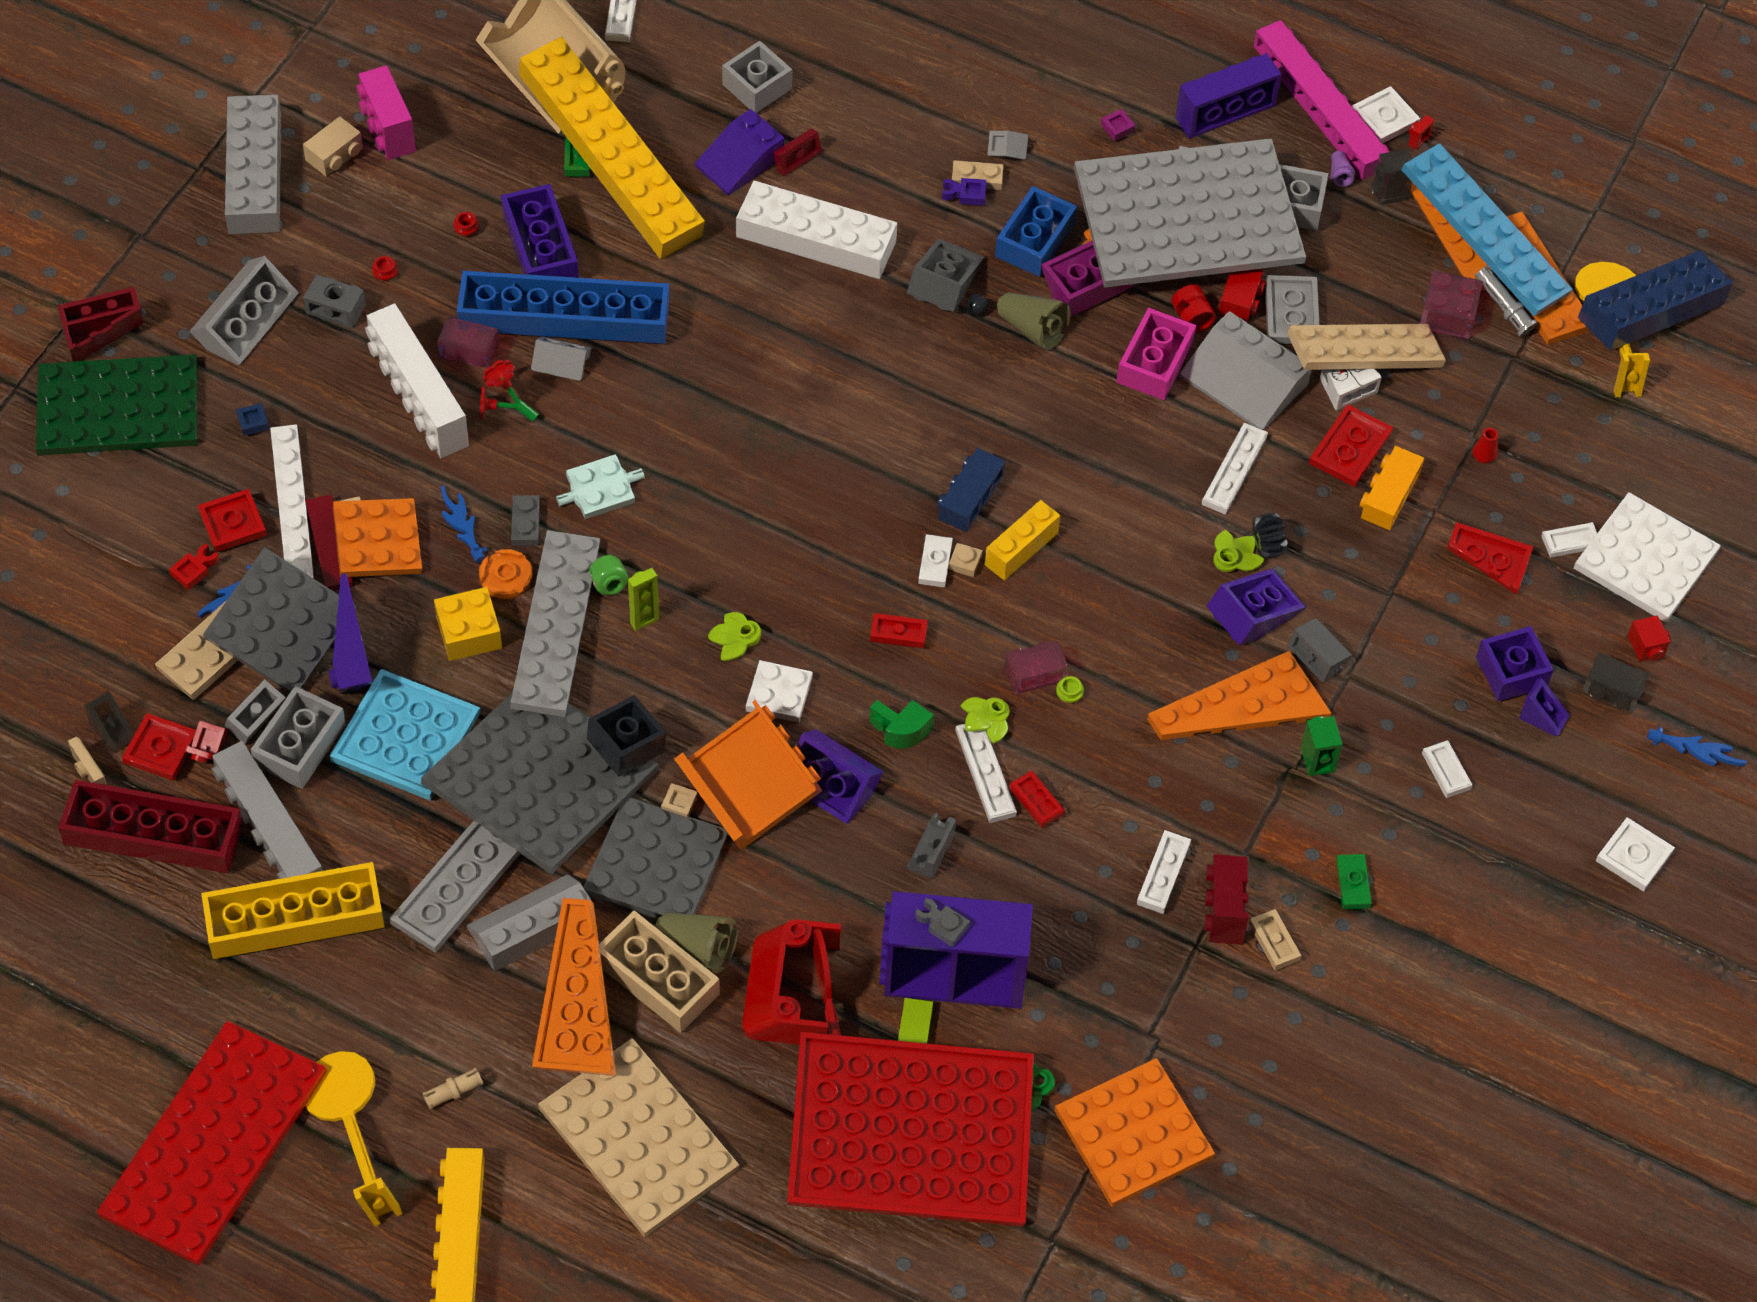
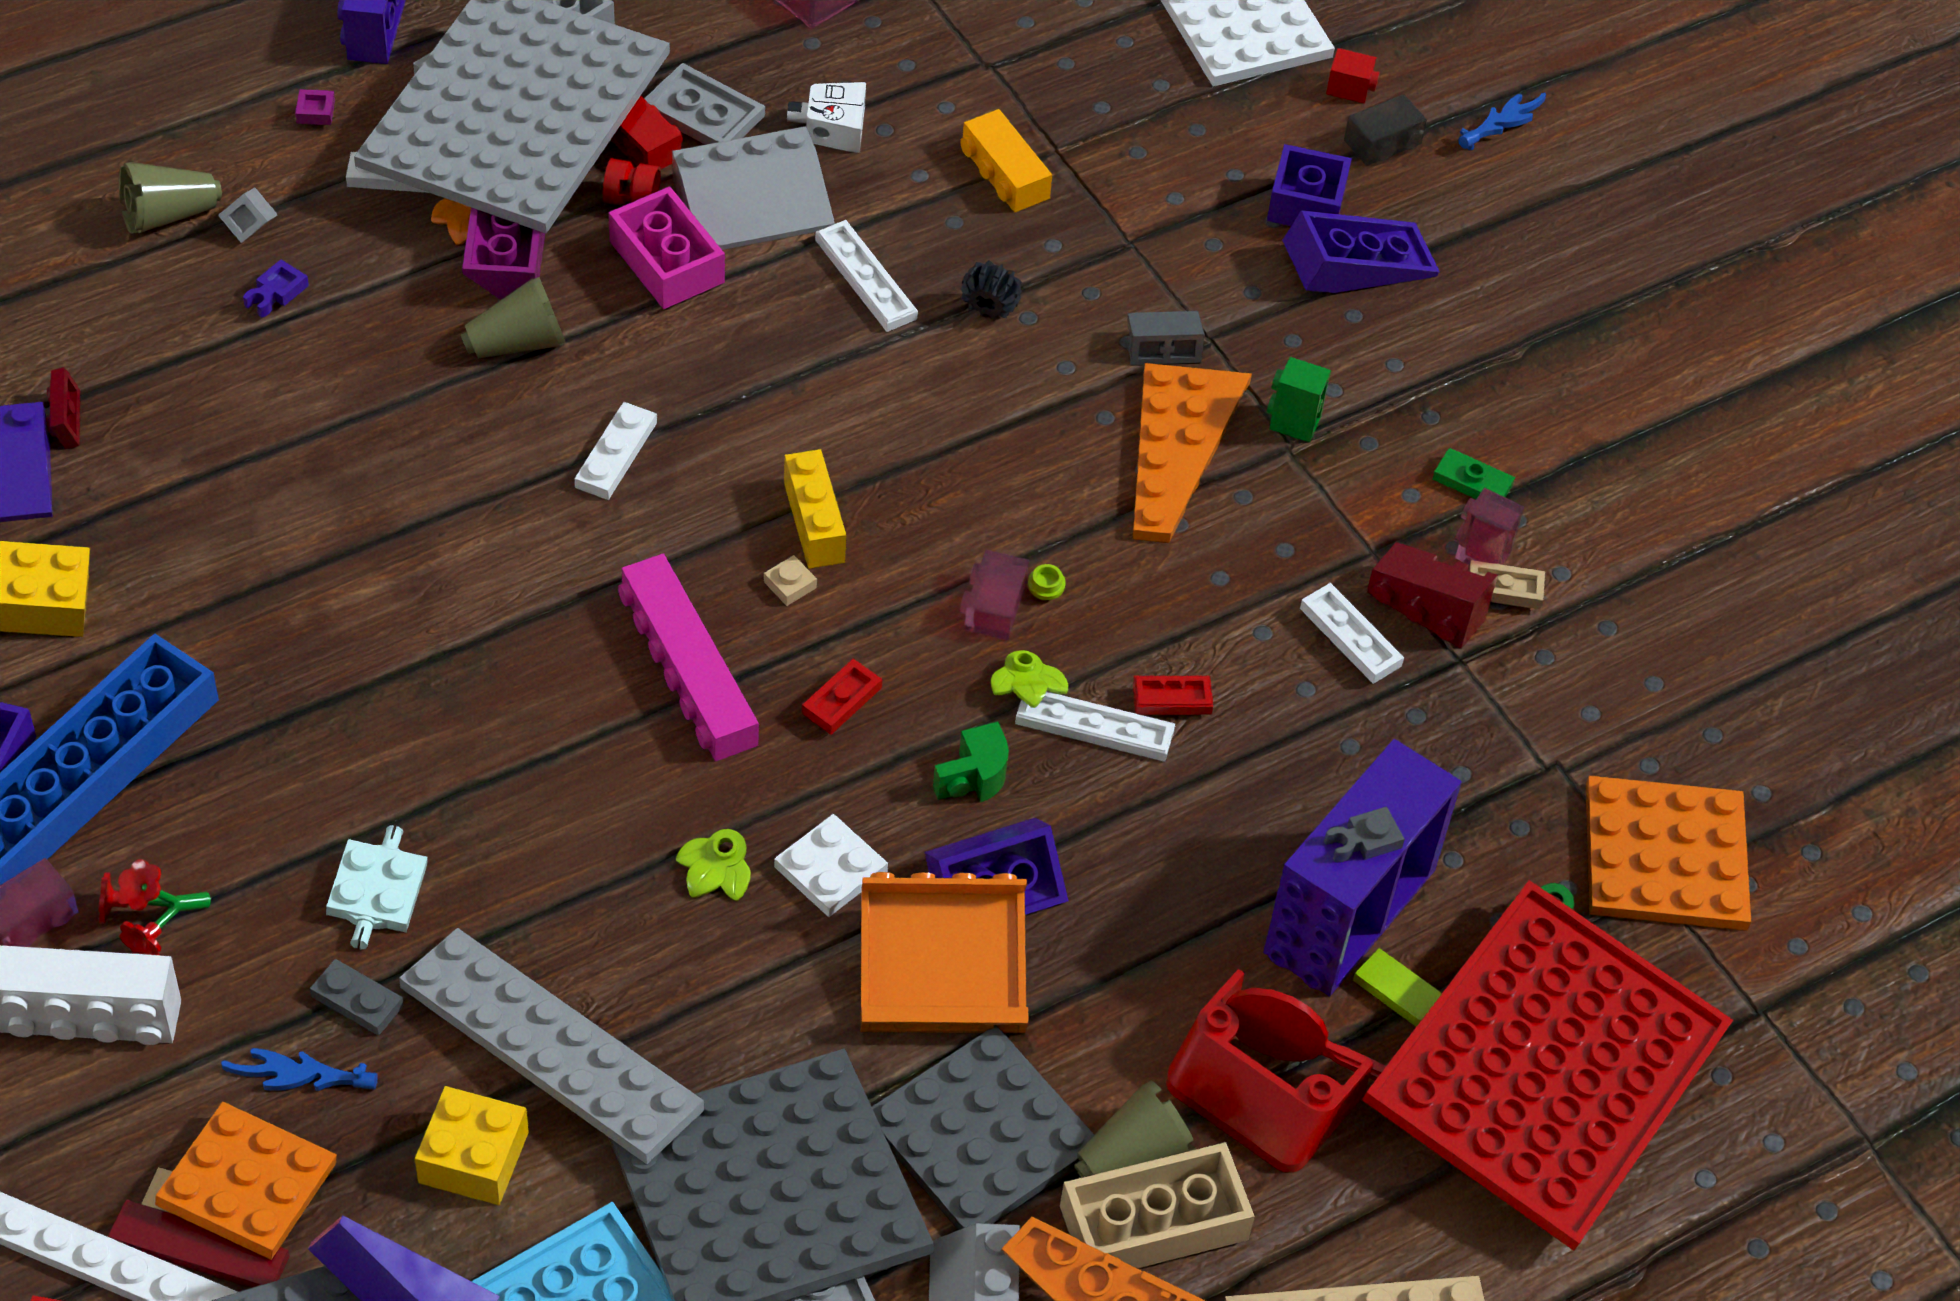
camera: 60 degrees left, 5 degrees down
(506, 574) = (420, 1064): orange tile -> none
(560, 358) = (142, 820): light grey panel -> none
(608, 575) = (524, 946): bright green head -> none
(626, 735) = (800, 1049): black brick -> none
(643, 598) = (609, 918): lime plate -> none
(680, 800) = (915, 1054): tan plate -> none
(816, 229) = (197, 453): white brick -> none
(864, 540) = (689, 658): none -> dark pink brick
(932, 846) = (1166, 829): dark grey hinge -> none
(935, 560) = (769, 609): white plate -> none
(944, 275) = (379, 373): dark grey slope -> none
(970, 489) = (703, 517): dark blue brick -> none
(976, 170) = (243, 273): tan plate -> none
(977, 305) = (446, 367): black hinge -> none
(983, 98) = (164, 194): none -> olive cone
(989, 421) = (615, 450): none -> white plate
(1036, 231) = (400, 254): blue brick -> none
(1237, 551) = (979, 338): lime plate -> none
(1254, 605) = (1067, 360): dark purple slope -> none
(1300, 904) = (1488, 528): none -> clear pink brick
(1351, 445) = (922, 163): red plate -> none
(1366, 346) = (816, 72): tan plate -> none
(1447, 769) = (1387, 323): white tile -> none
(1486, 447) = (1017, 60): red cone -> none
(1490, 721) = (1356, 252): none -> dark purple slope
(1491, 554) = (1153, 133): red wing -> none
(1544, 709) = (1373, 200): dark purple slope -> none
(1569, 539) = (1177, 67): white tile -> none
(1635, 854) = (1598, 235): white plate -> none

